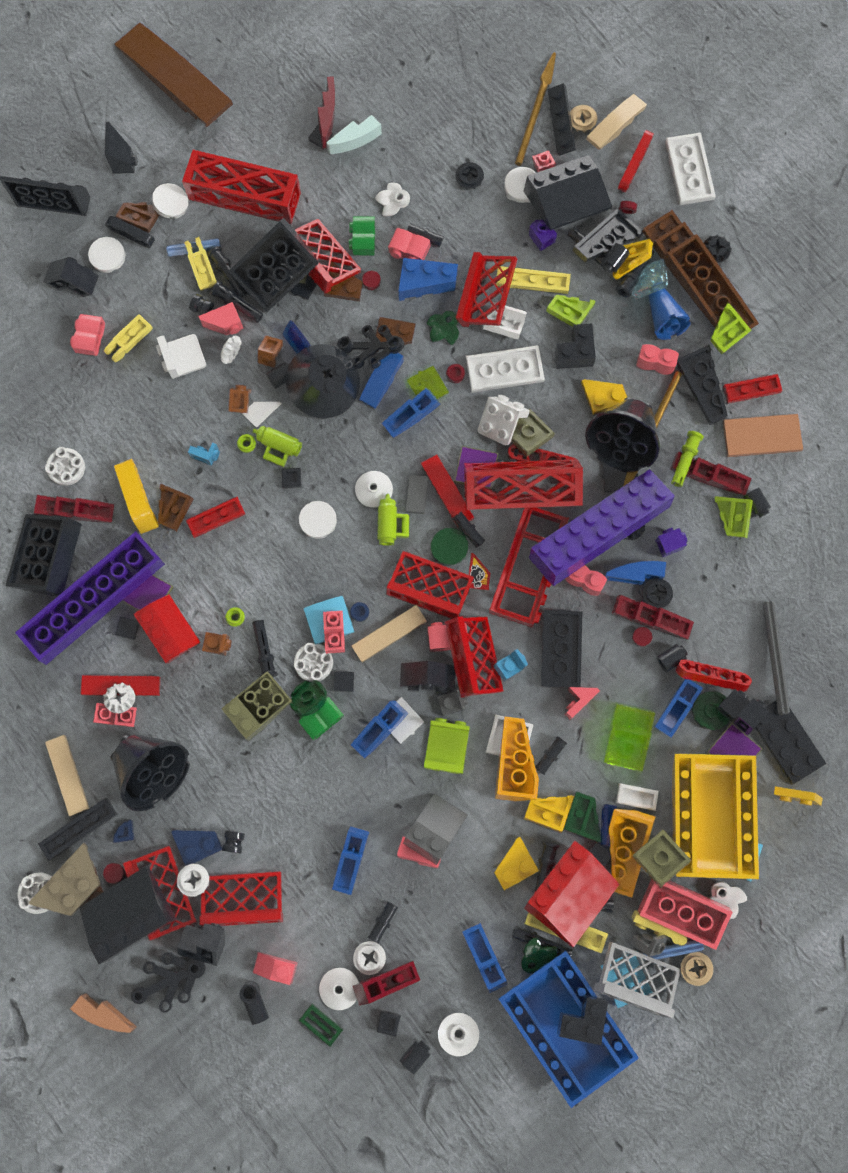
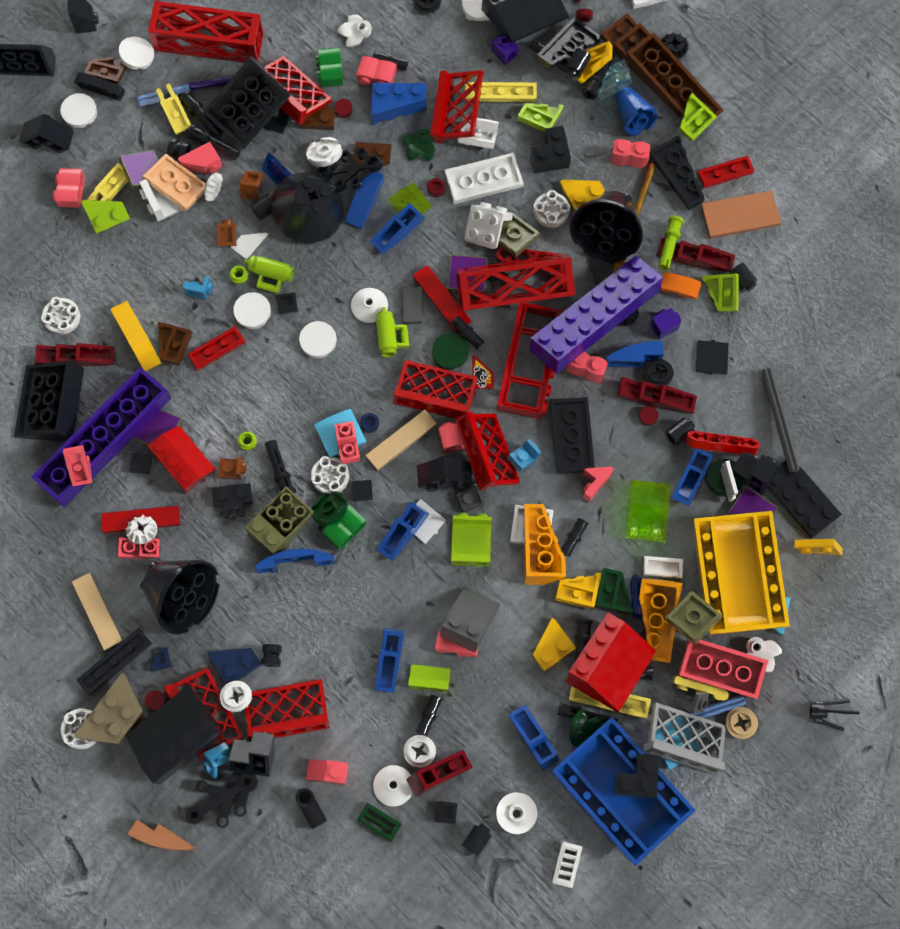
camera: 10 degrees left, 5 degrees down
(61, 628) = (78, 465): none -> coral slope
(120, 366) = (105, 213): none -> lime wing
(162, 321) = (136, 165): none -> tile
(164, 940) = (215, 758): none -> dark azure bracket
(193, 340) = (175, 182): none -> light nougat tile
(213, 675) = (232, 498): none -> black hinge
(240, 239) = (209, 83): none -> dark purple bar
(244, 746) = (269, 564): none -> blue slope
(255, 482) = (252, 310): none -> white tile
(346, 324) = (324, 152): none -> white tile
(388, 883) = (429, 678): none -> lime panel
(511, 1077) = (572, 847): none -> white slope
(569, 409) = (551, 209): none -> white tile
(692, 504) = (680, 285): none -> orange slope
(714, 582) = (712, 357): none -> black piece
(715, 718) = (729, 481): none -> white piece
(777, 967) = (819, 711): none -> black plant

